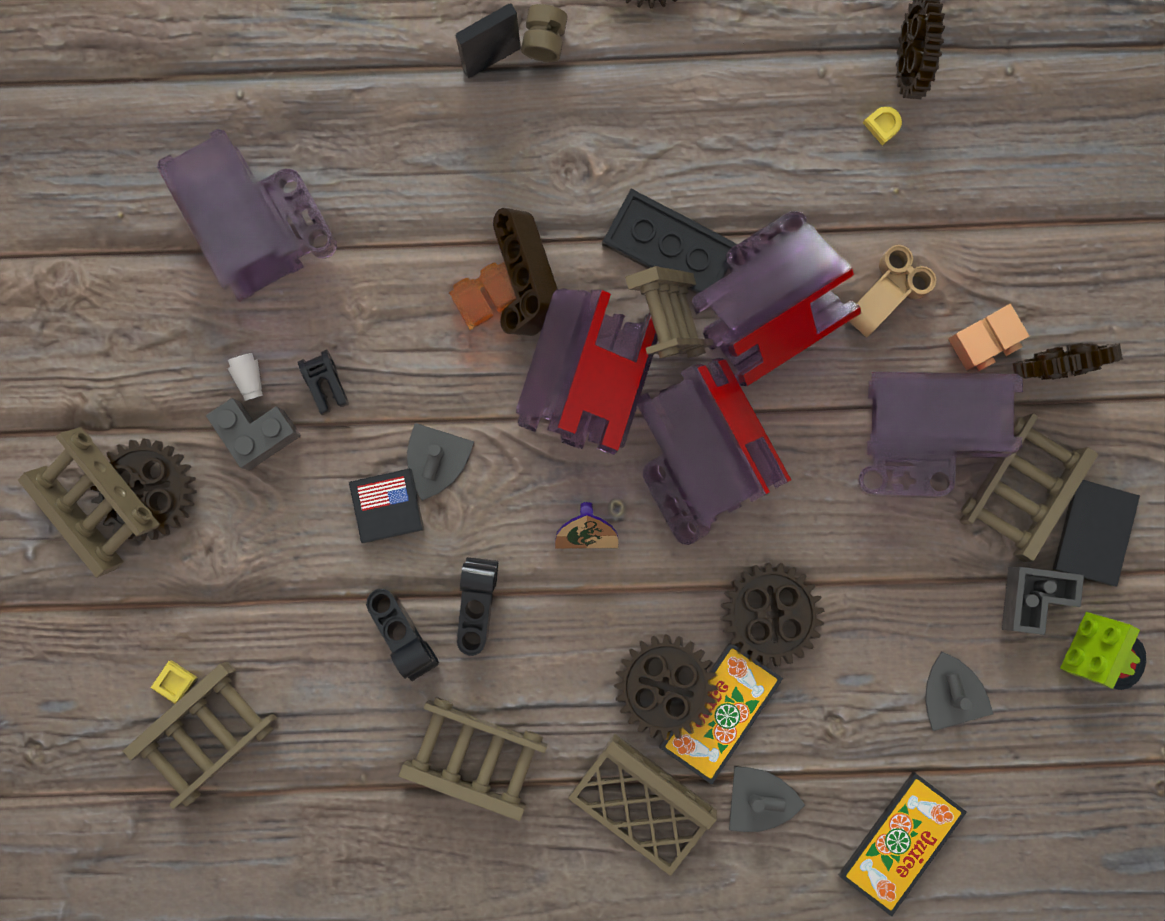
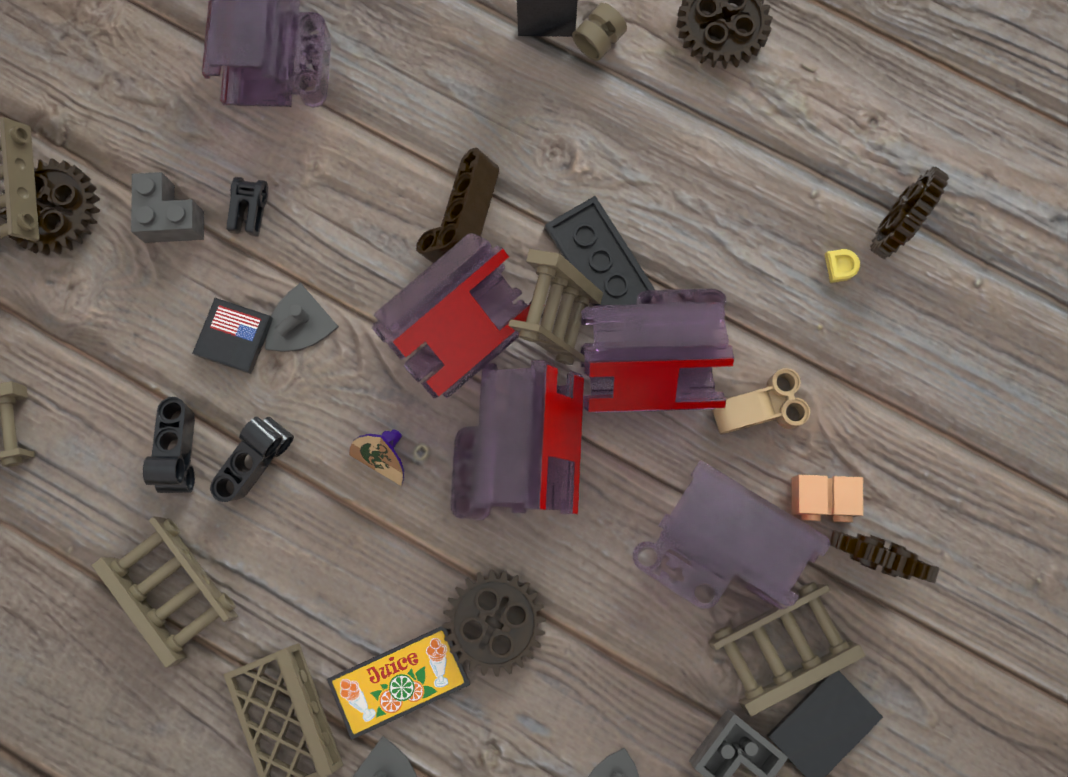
camera: 35 degrees right, 5 degrees down
(246, 375) = (189, 164): white cone -> none
(471, 301) = (405, 210): clear orange piece -> none
(674, 659) = (342, 649): dark brown gear -> none

